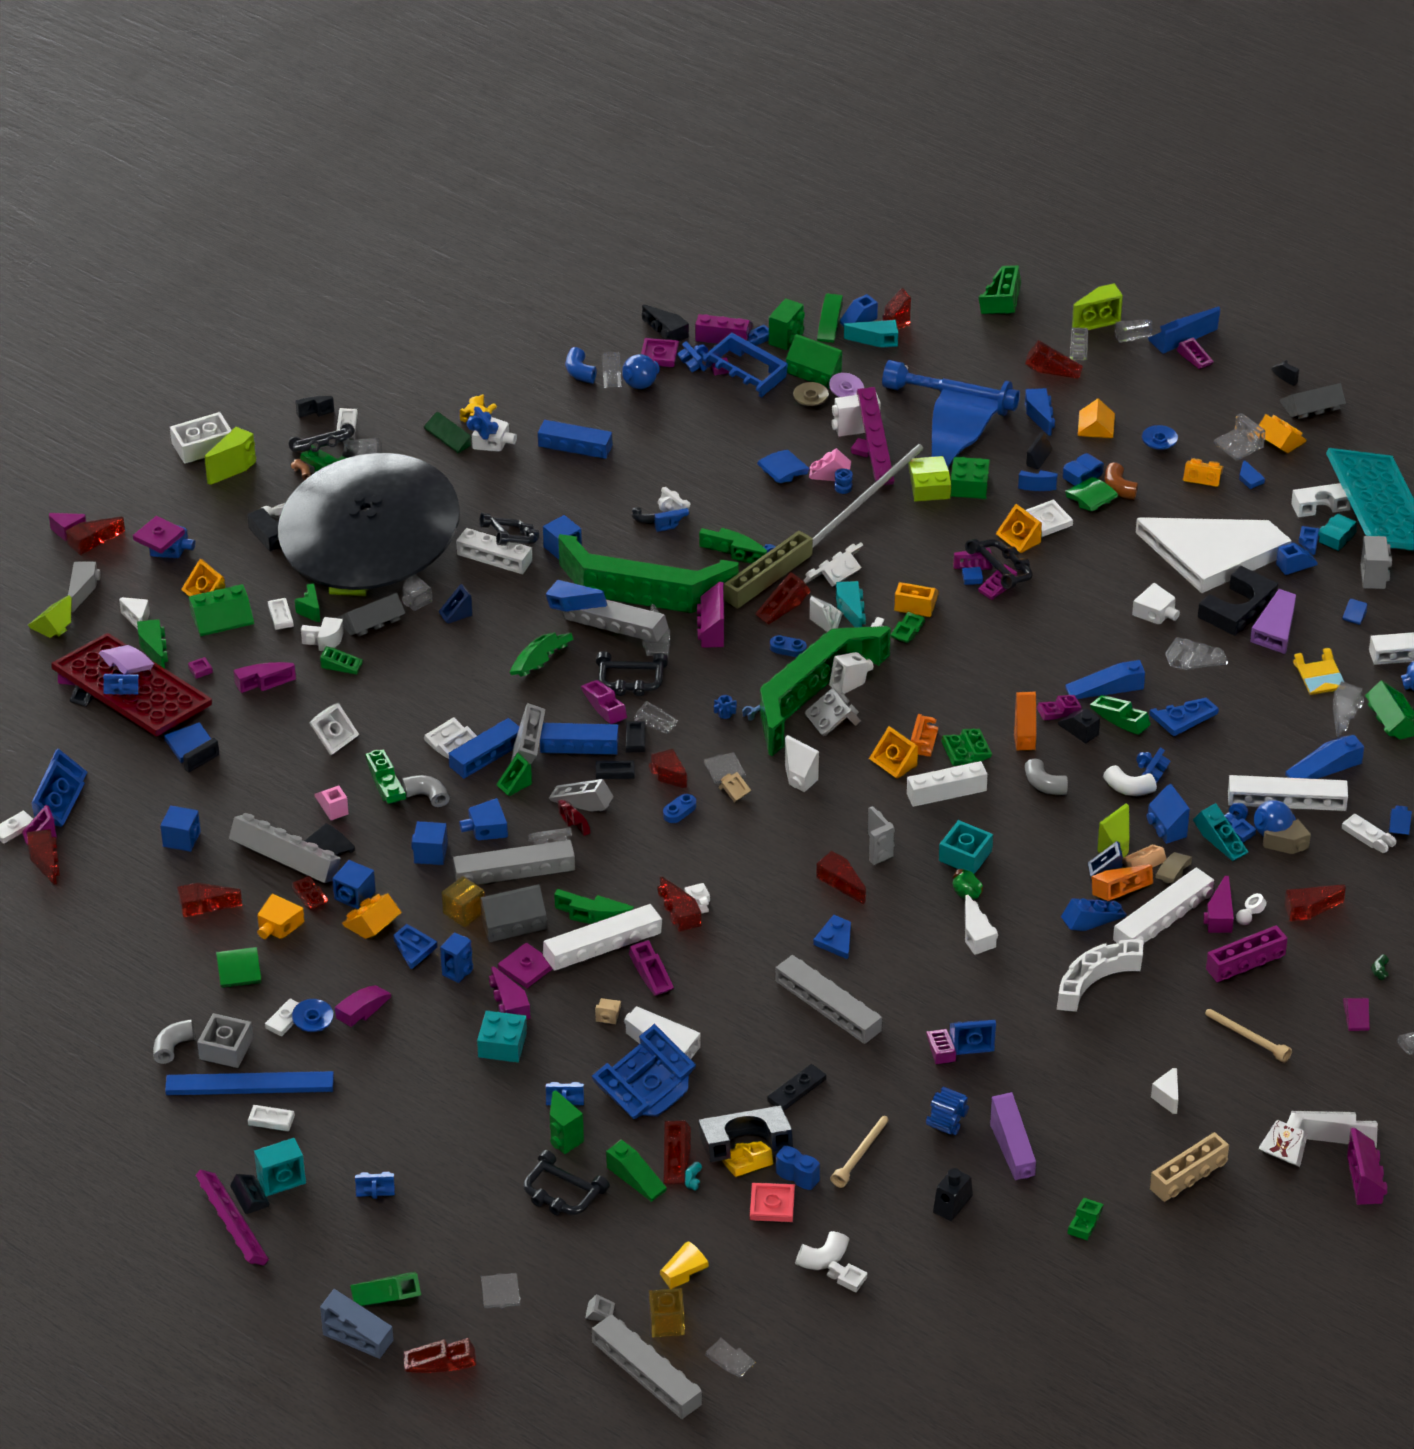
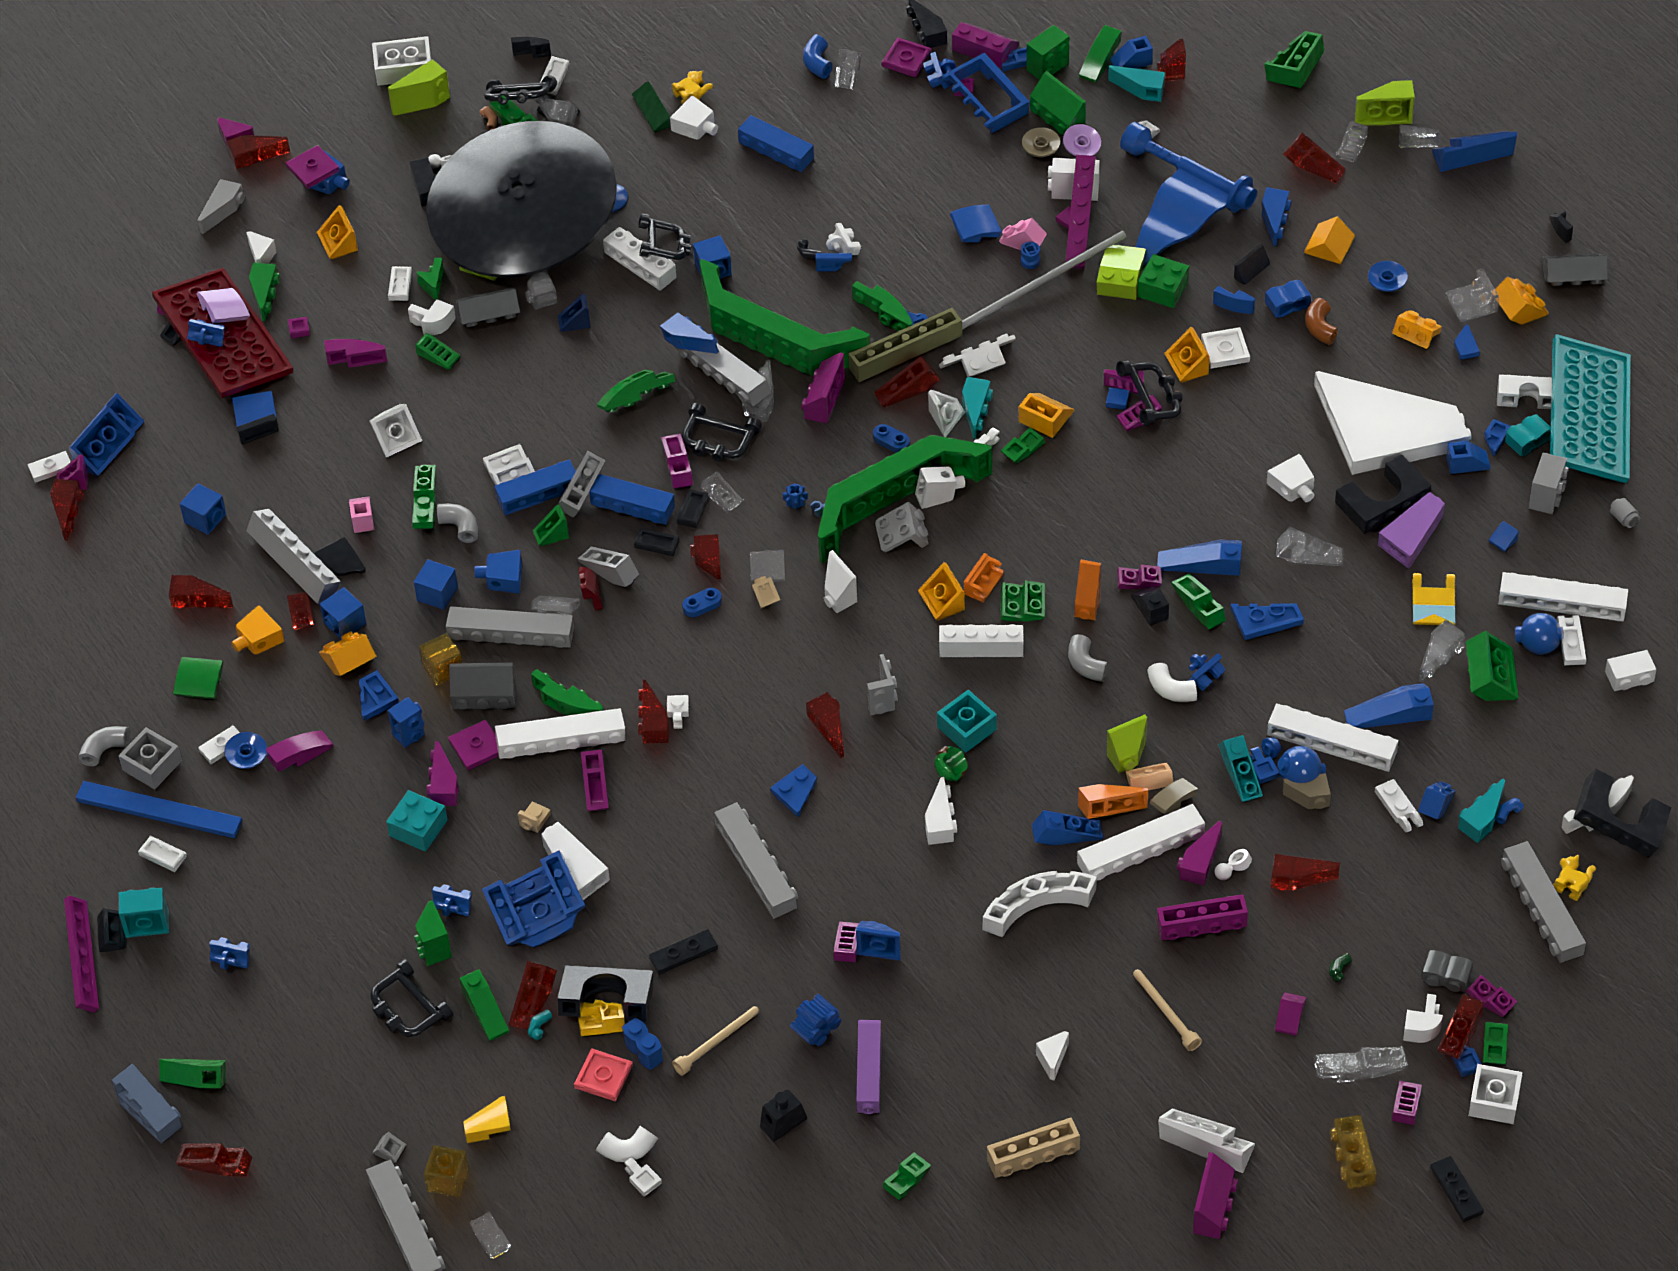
camera: 20 degrees right, 10 degrees up
(54, 618) = (178, 240): lime slope -> none
(221, 610) = (343, 266): green slope -> none
(481, 423) = (682, 107): blue hips -> none
(500, 1290) = (303, 1100): clear piece -> none
(640, 371) = (873, 78): blue brick -> none
(1091, 494) = (1284, 329): green slope -> none
(1107, 860) = (1106, 773): dark blue slope -> none
(1169, 815) = (1192, 735): blue slope -> none
(1191, 346) = (1474, 168): magenta slope -> none
(1286, 1140) = (1144, 1145): white torso -> none

